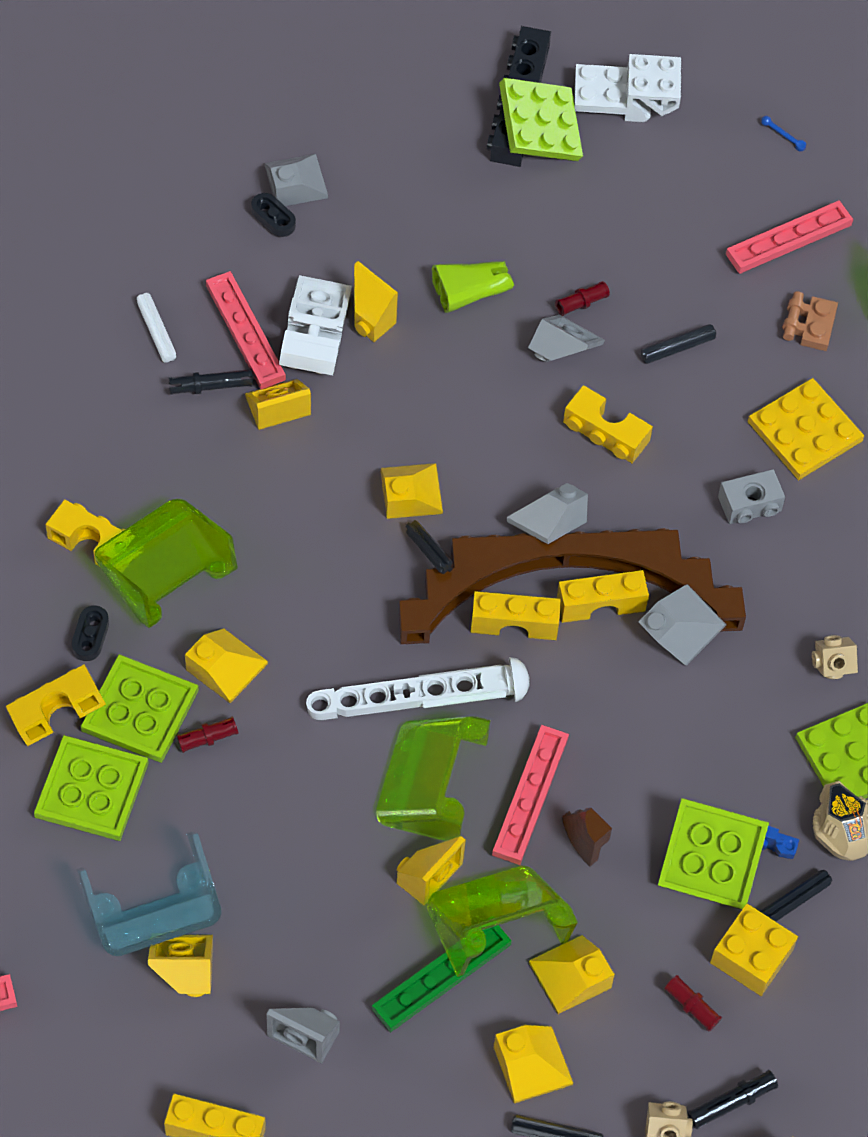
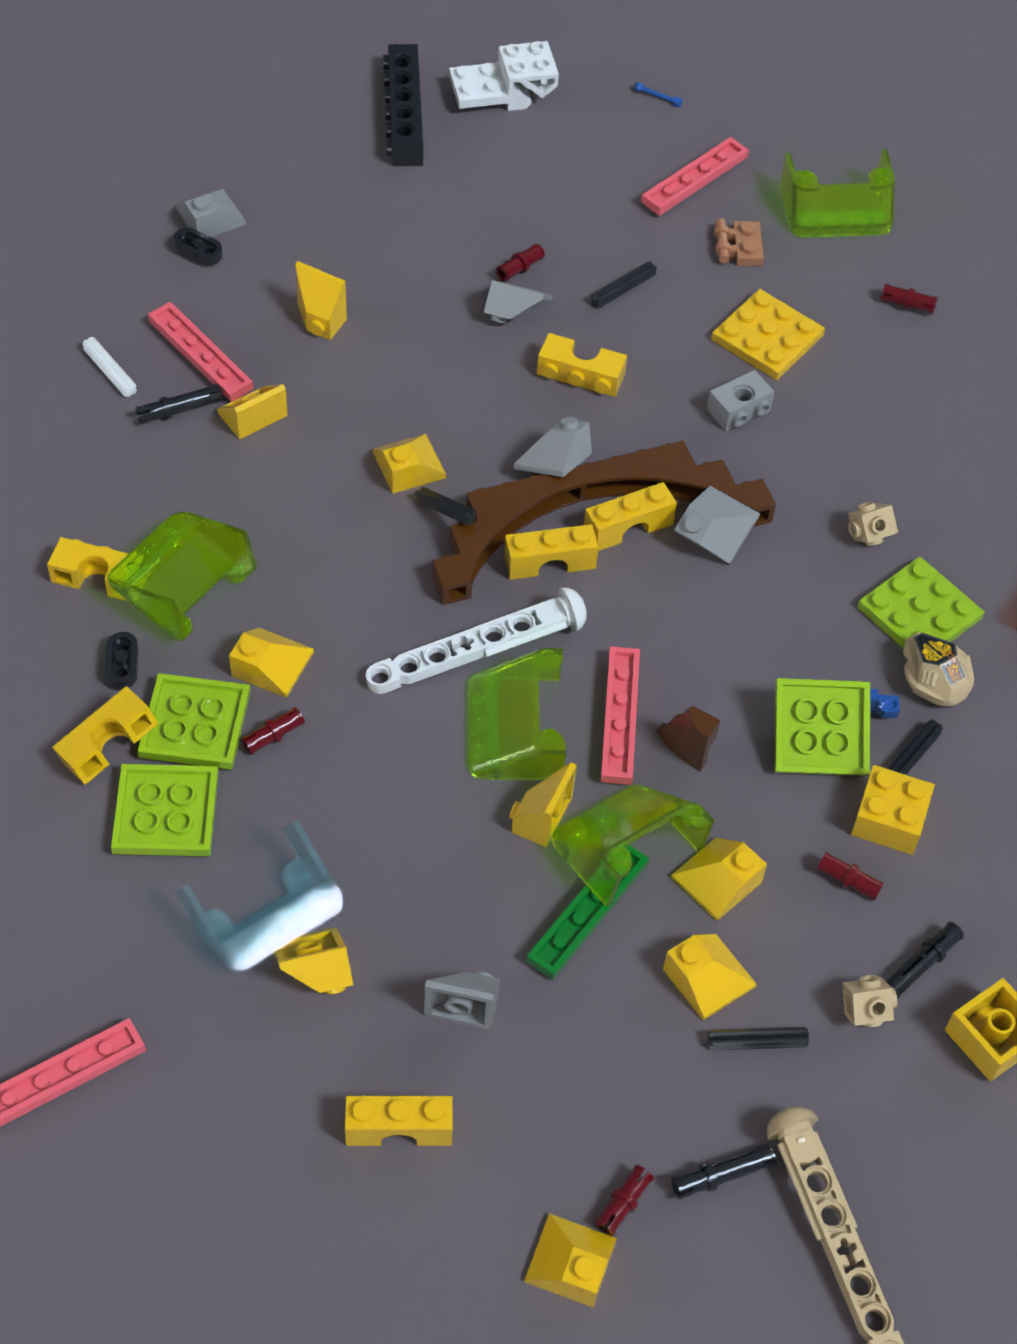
camera: 15 degrees left, 5 degrees down
(315, 325) = (270, 333): white piece -> none
(468, 283) = (407, 269): lime piece -> none
(540, 119) = (432, 117): lime plate -> none

